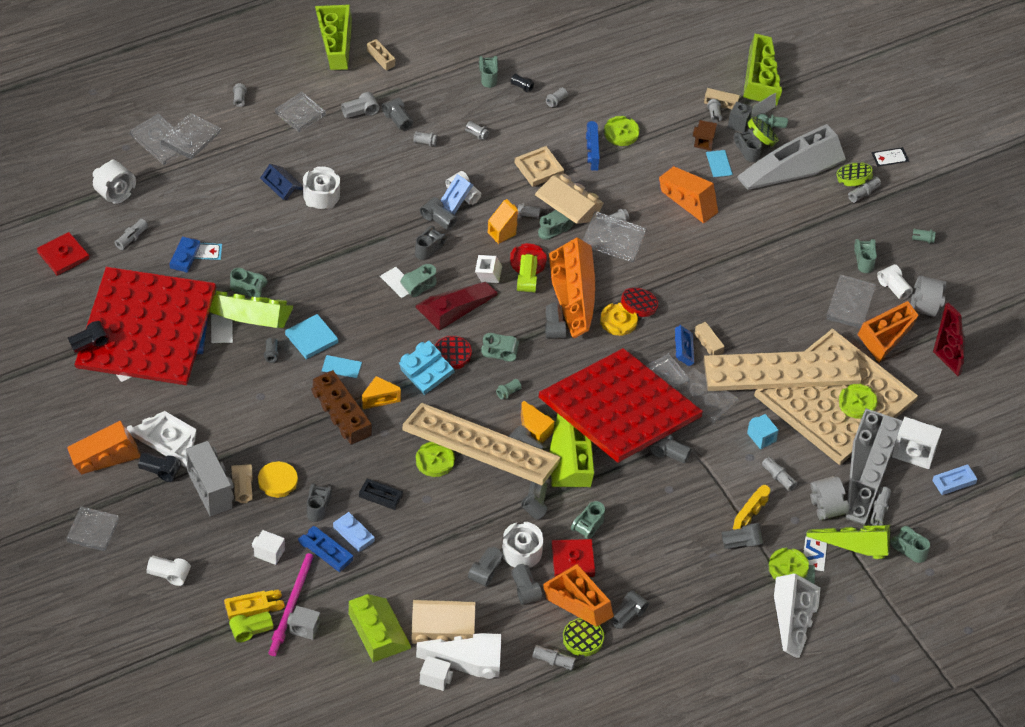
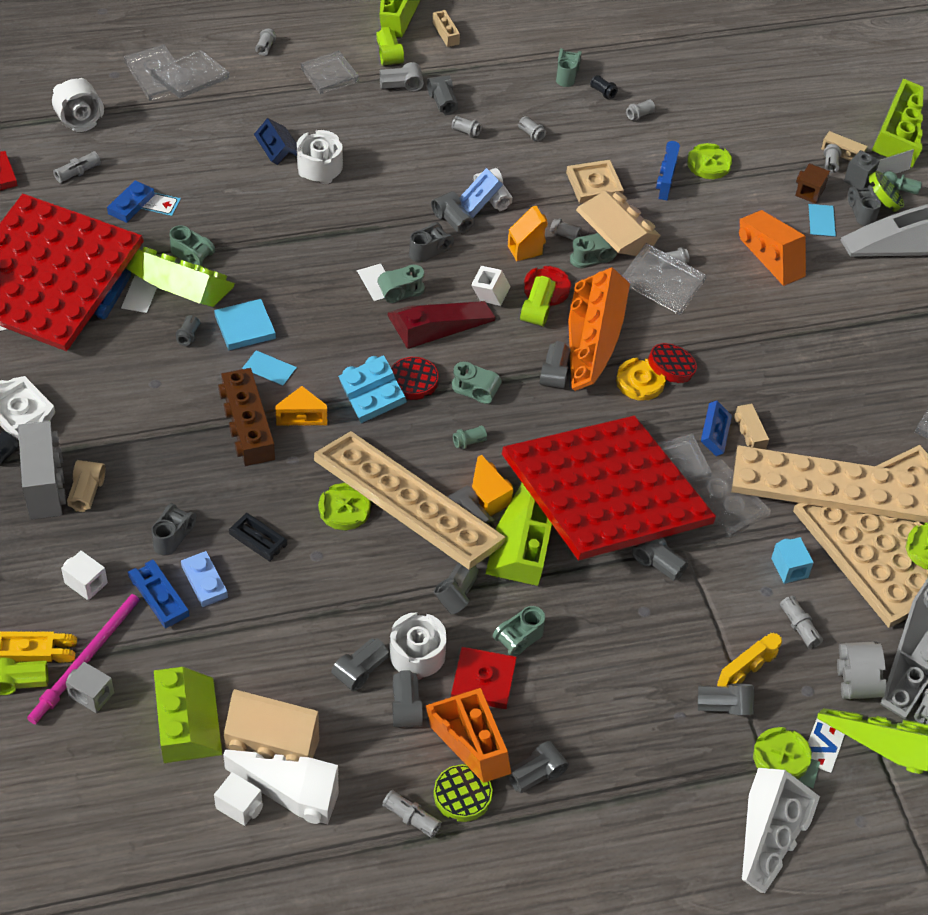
camera: 15 degrees right, 0 degrees up
(277, 479) = (133, 490): yellow tile -> none
(342, 83) = (389, 49): none -> lime piece

